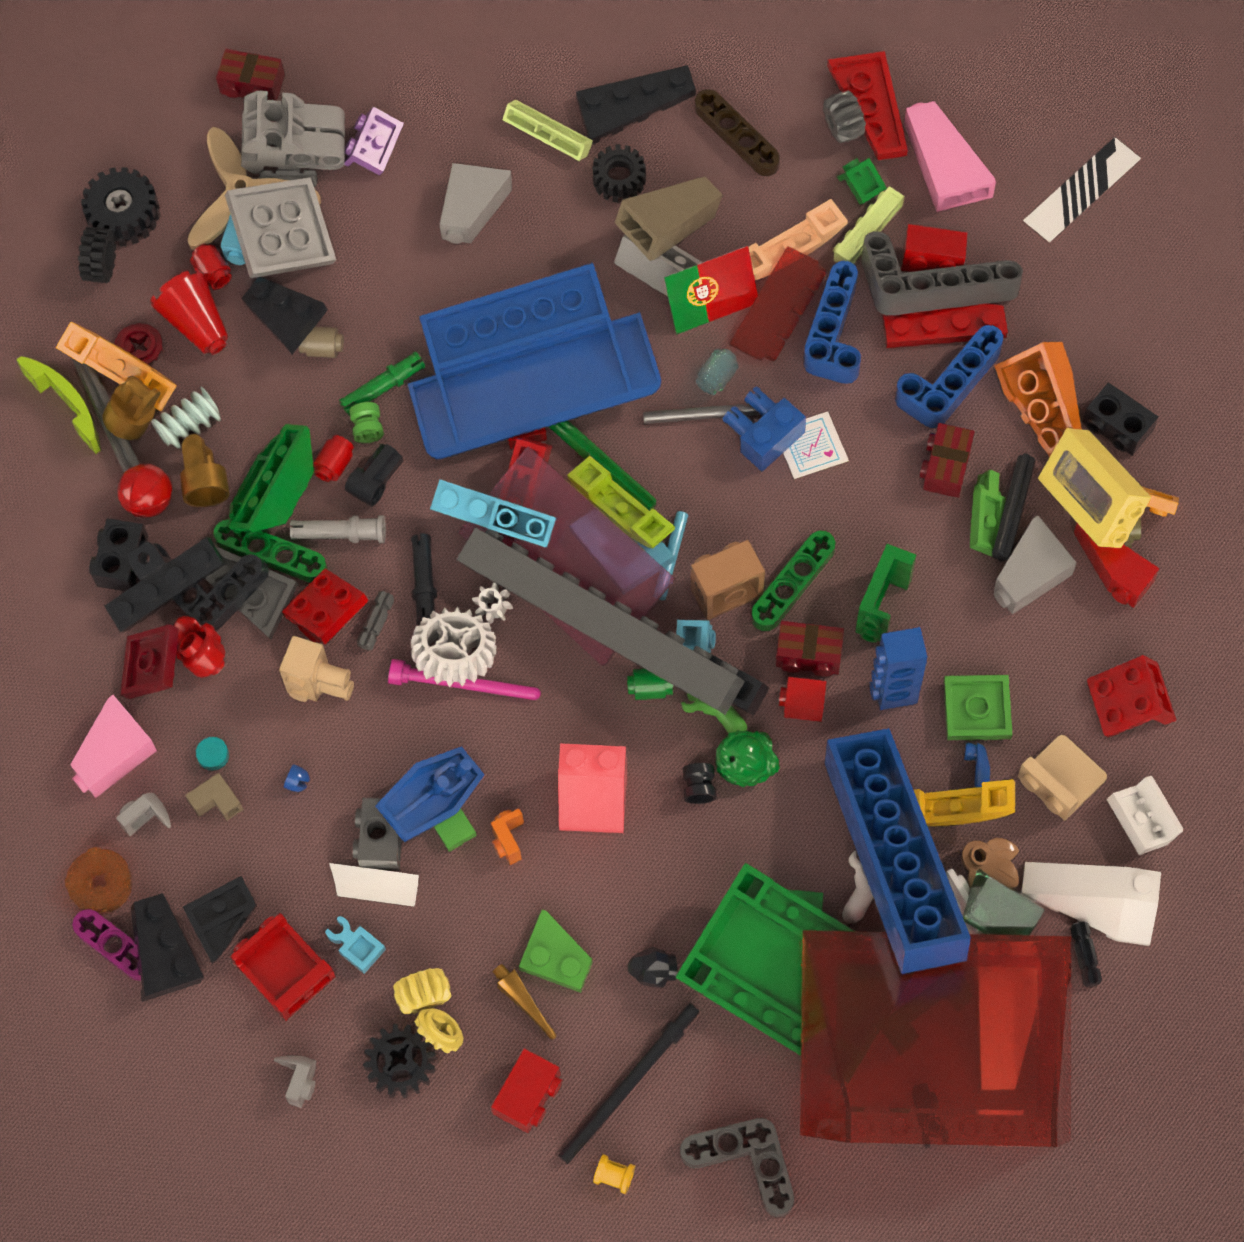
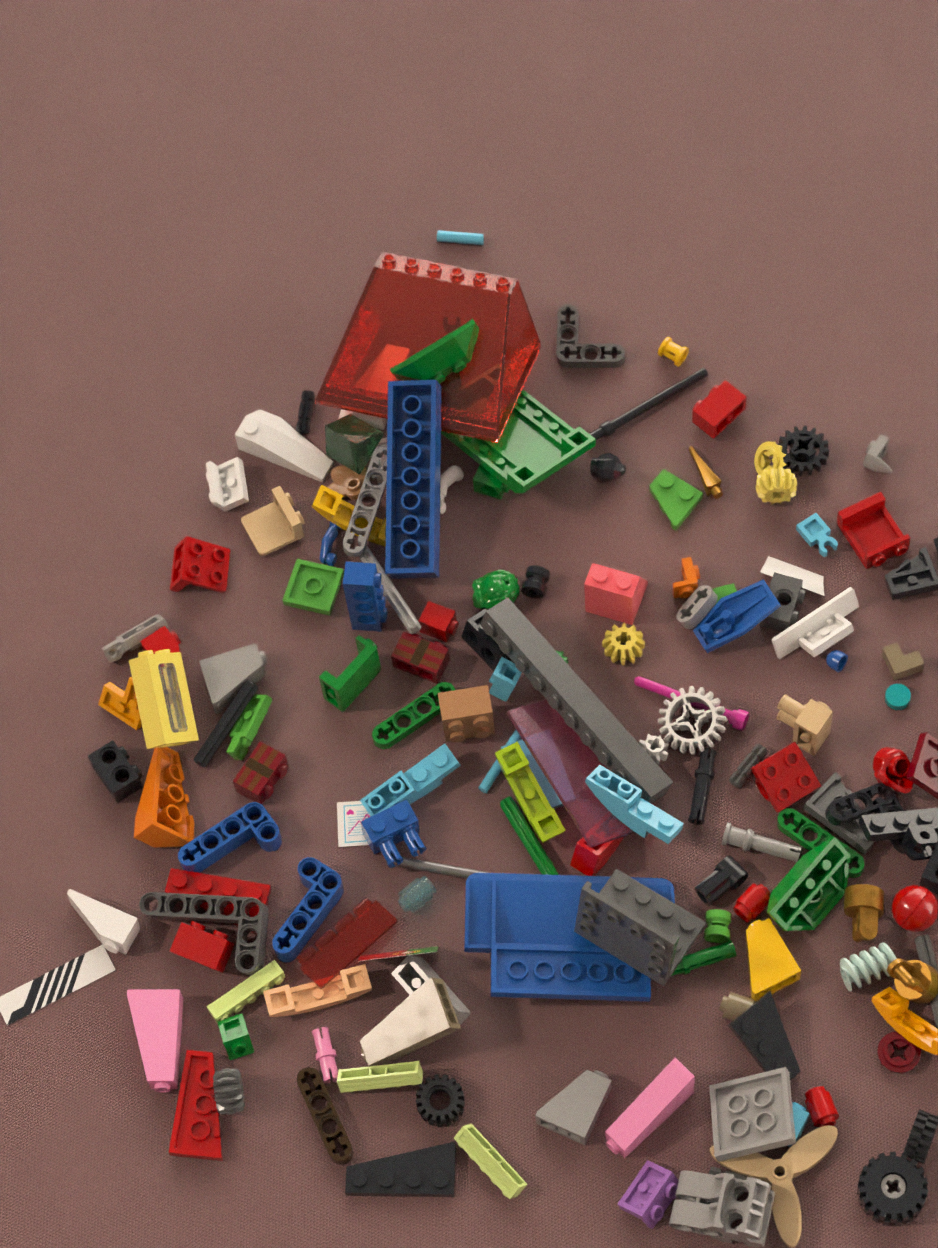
camera: 160 degrees left, 5 degrees down
(192, 311) = (846, 1062): red cone -> none
(299, 397) = (769, 960): none -> yellow slope
(320, 809) = (820, 628): none -> white bracket
(389, 214) = (650, 1108): none -> bright pink slope
(451, 368) = (637, 925): none -> dark grey bracket
(480, 796) = (697, 607): none -> light grey beam
(552, 731) = (632, 638): none -> light yellow gear
(682, 173) = (380, 1076): none -> yellowish green piece
(757, 186) = (325, 1054): none -> bright pink pin
(768, 492) = (413, 783): none -> medium azure slope
(880, 720) = (393, 595): none -> light grey axle
(918, 997) = (442, 357): none -> green wedge
(948, 808) = (362, 511): none -> light grey beam
(1051, 252) = (111, 926): none -> white slope
(1169, 587) = (131, 639): none -> light grey hinge

